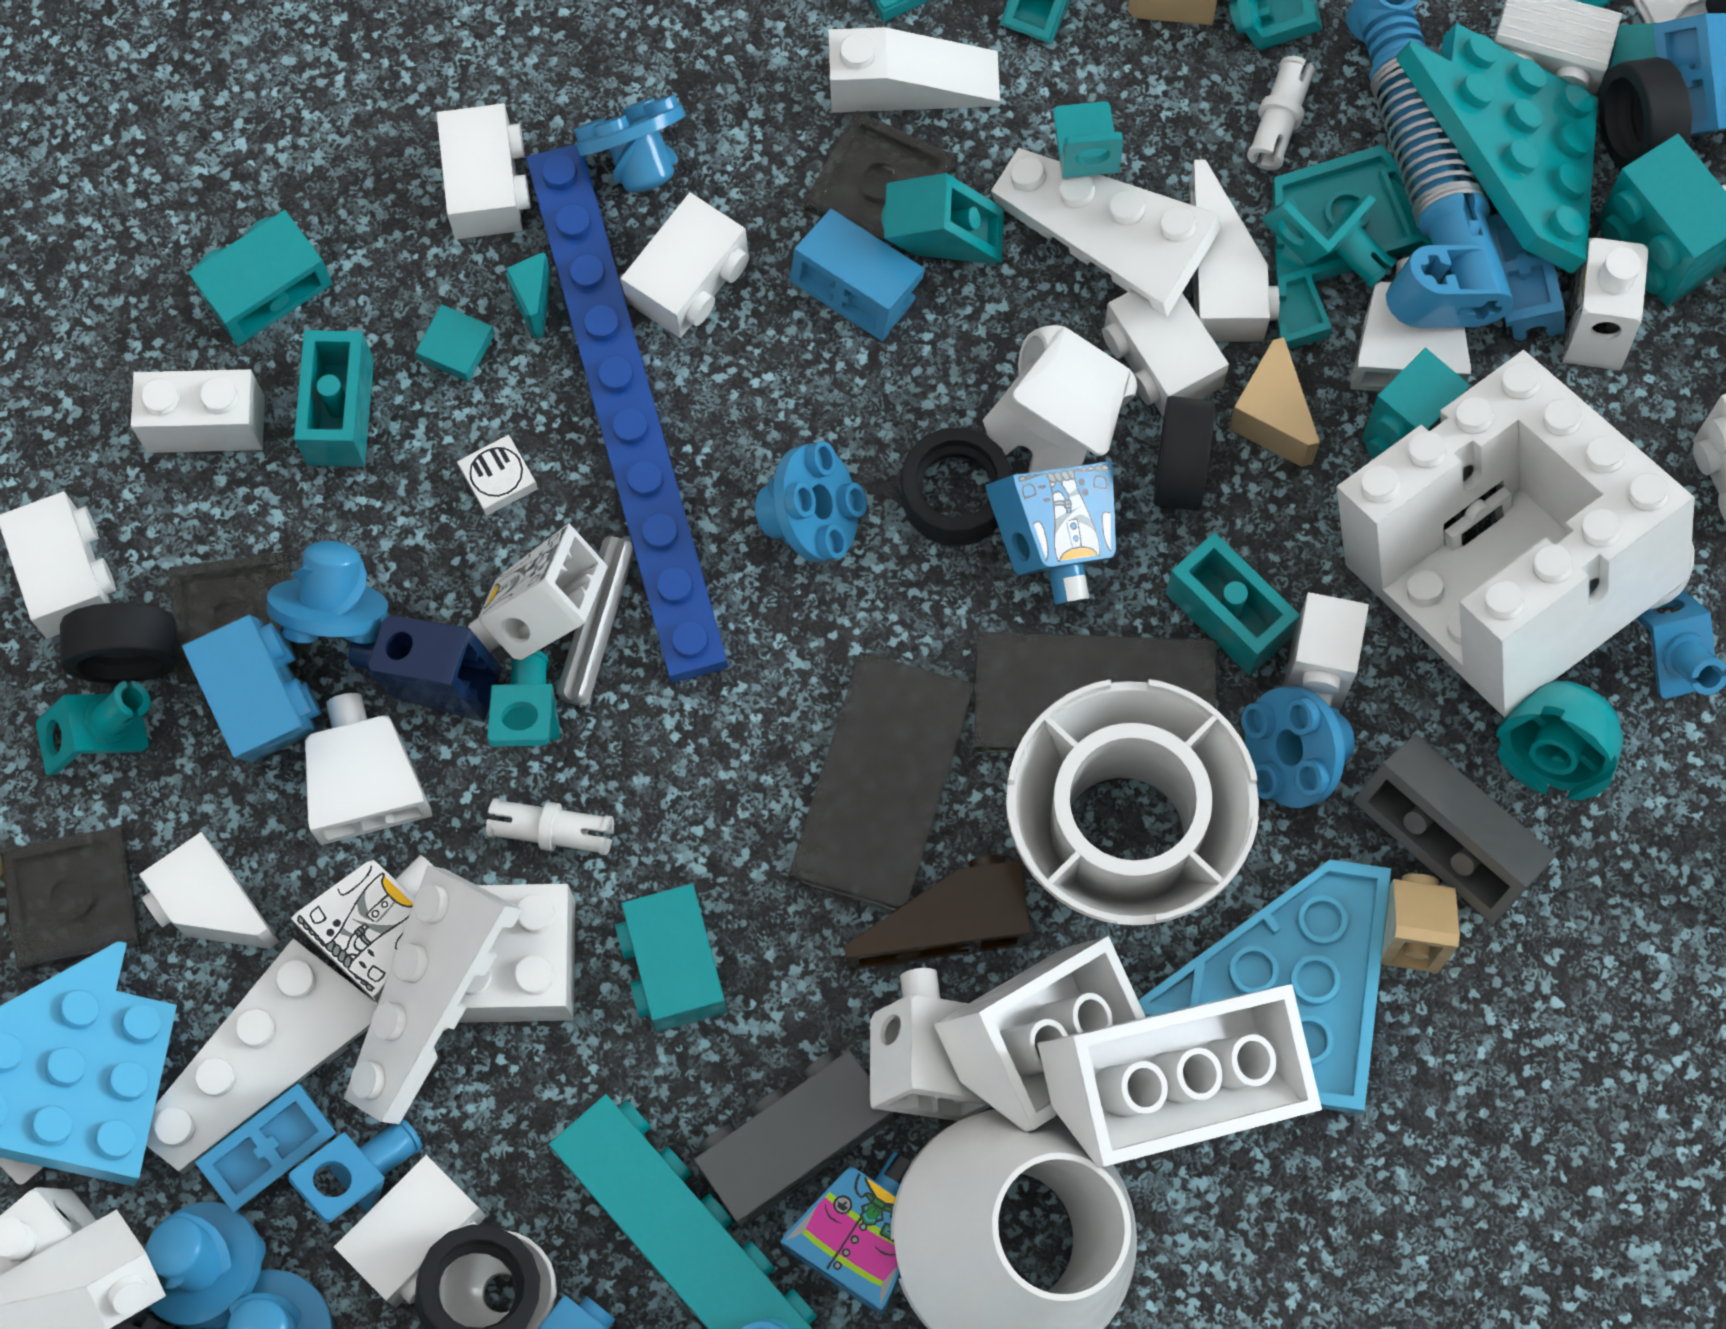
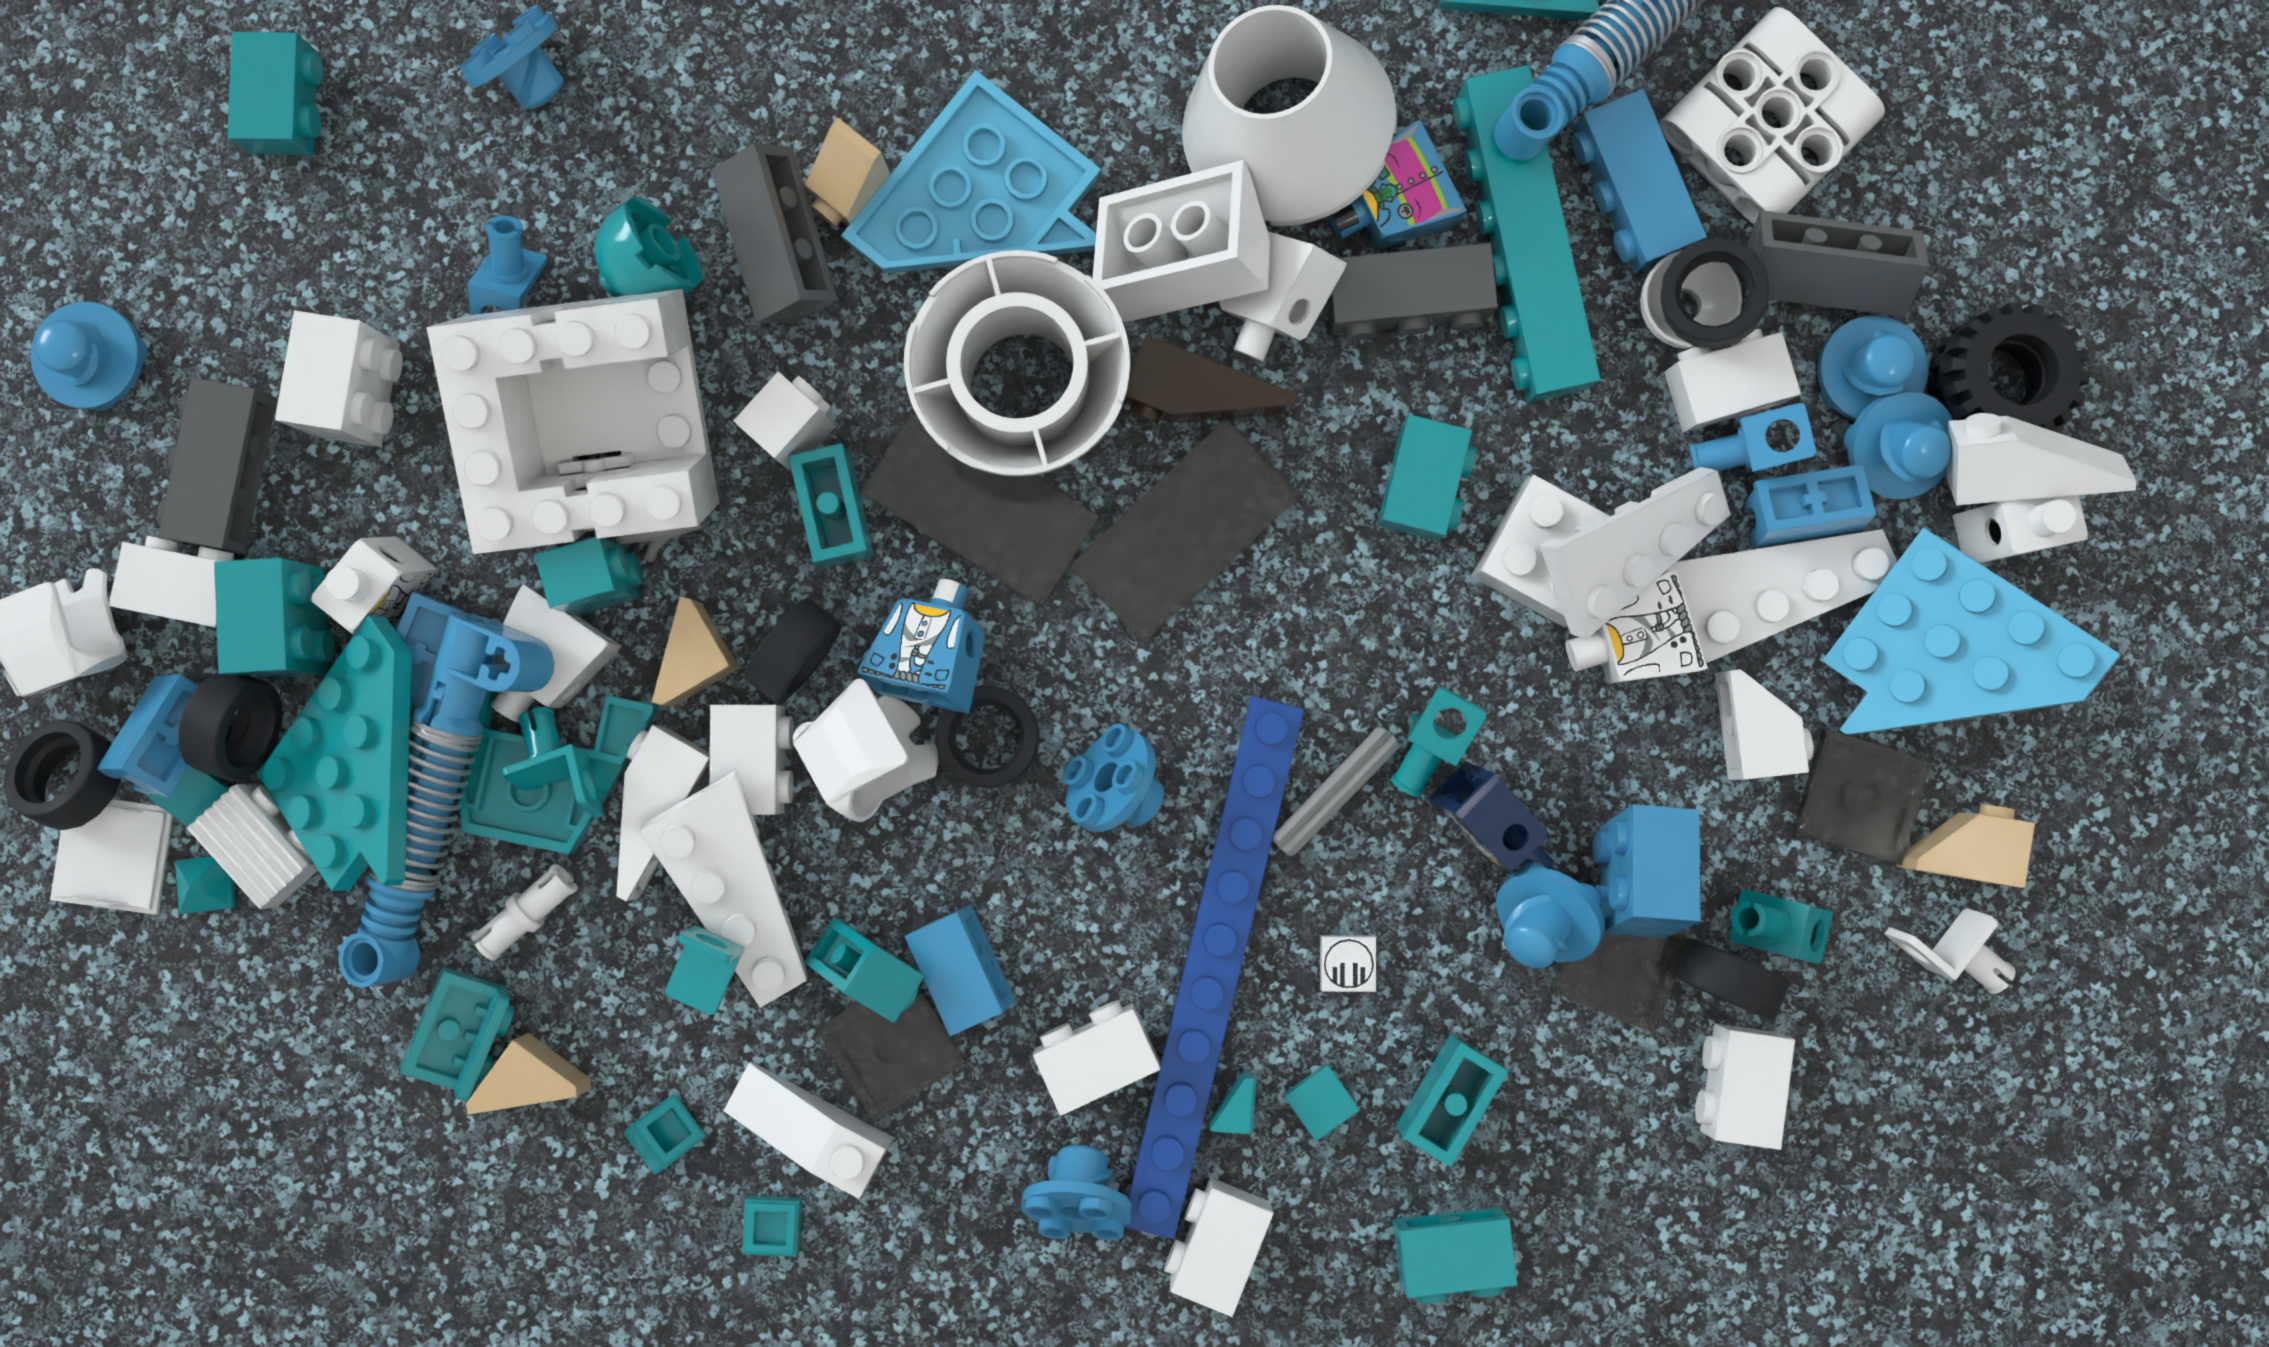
camera: 150 degrees left, 15 degrees up
(198, 411) = (1567, 1156): white brick -> none
(359, 775) = (1589, 765): white torso -> none
(541, 596) = (1374, 822): white torso -> none
(550, 826) = (1462, 639): white pin -> none
(1182, 1075) = (1106, 142): white slope -> none
(1296, 745) = (854, 364): dark azure plate -> none

